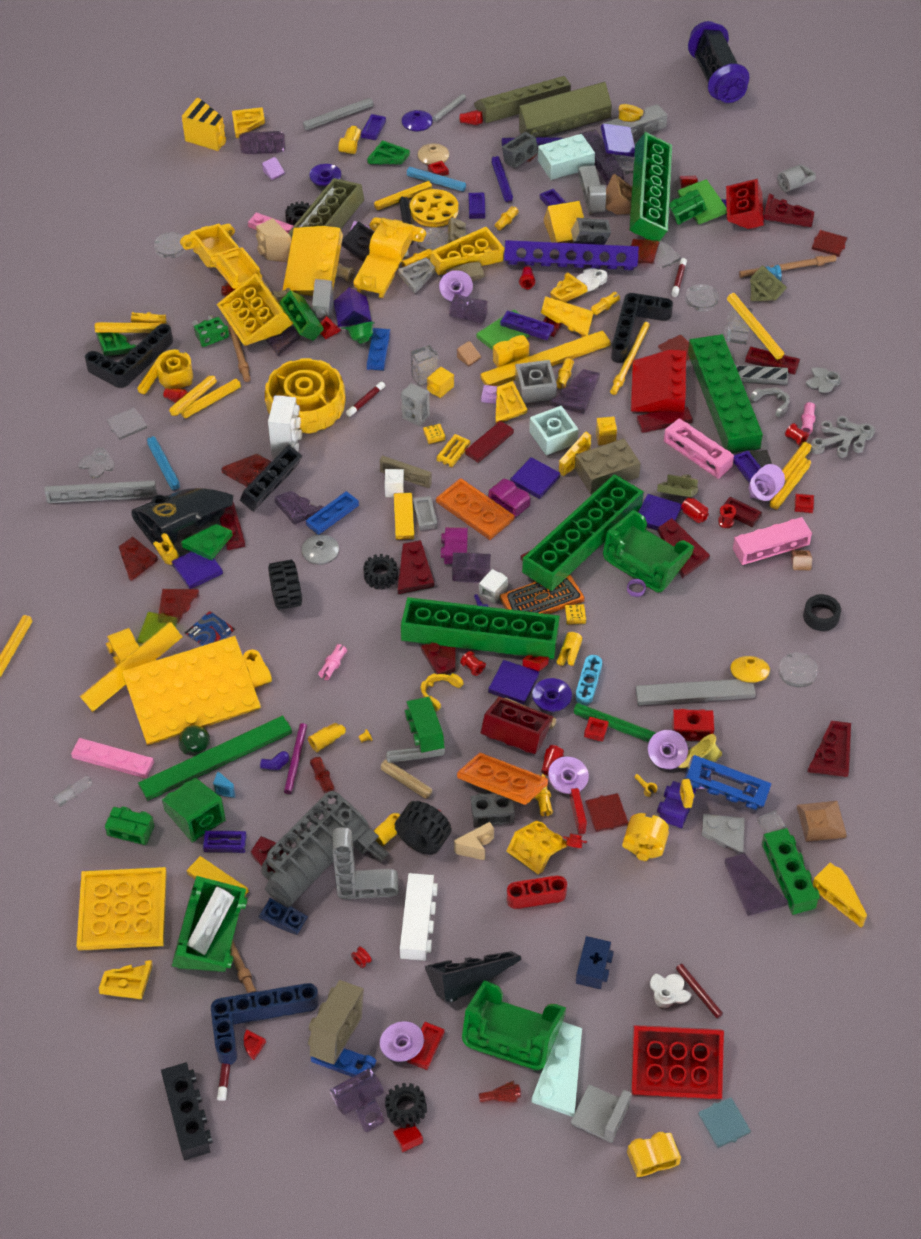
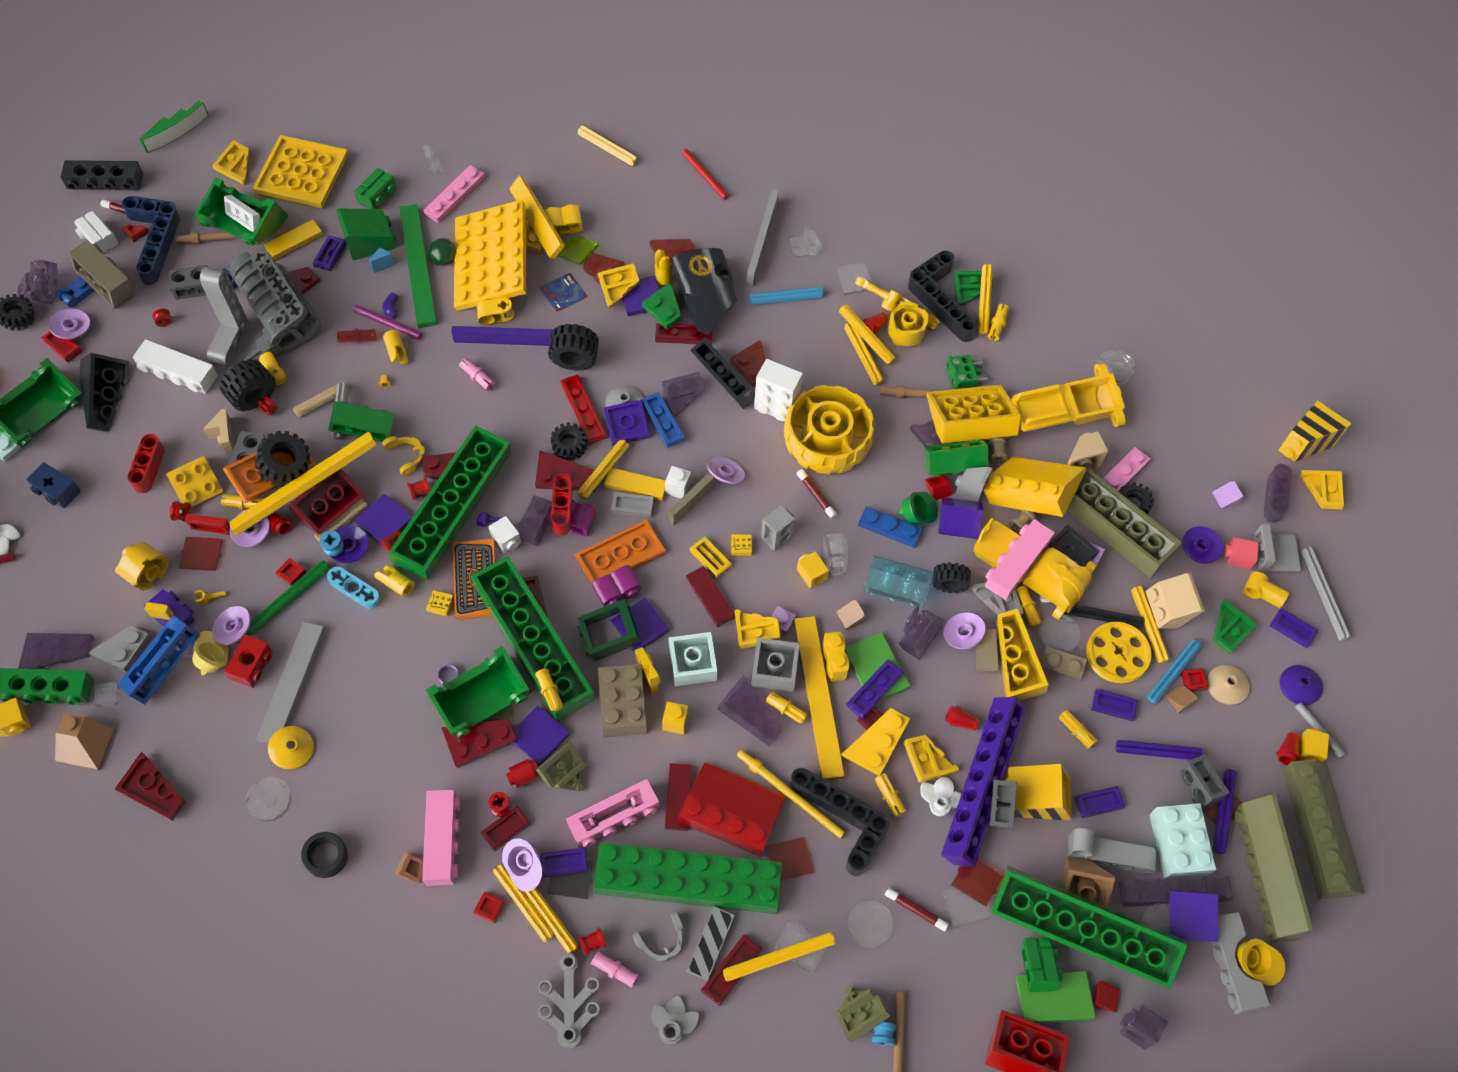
camera: 105 degrees right, 10 degrees up
(28, 559) = (704, 173): none -> red bar
(95, 1069) = (171, 129): none -> slope
(148, 389) = (890, 299): none -> yellow brick
(193, 580) = (618, 283): none -> yellow wing
(271, 1076) = (95, 231): none -> white brick
(281, 649) = (499, 335): none -> dark purple tile
(310, 947) = (186, 282): none -> dark grey brick
(315, 139) = (1276, 551): none -> light grey bracket
(323, 153) = (1241, 553): none -> coral brick
(337, 576) = (583, 409): none -> red tile
(344, 537) = (627, 422): none -> dark purple tile
(369, 455) = (726, 470): none -> lavender dish
(384, 177) = (1174, 601): none -> tan slope
(388, 255) = (1019, 559): none -> bright pink brick
(405, 536) = (603, 469): none -> yellow axle
(415, 297) = (951, 577): none -> black tyre
(428, 327) = (898, 582): none -> clear light blue slope
(456, 540) = (562, 496): none -> red beam
(457, 171) = (1181, 698): none -> medium nougat slope
(464, 104) = (1313, 745): none -> yellow brick
(495, 758) = (282, 443): none -> black tyre
(515, 733) = (302, 483): none -> yellow tile
(552, 468) = (614, 646): none -> dark green window
(556, 701) = (336, 545): none -> dark azure wheel
(628, 494) = (549, 689): none -> yellow axle
(702, 154) = (1143, 1026): none -> clear purple brick

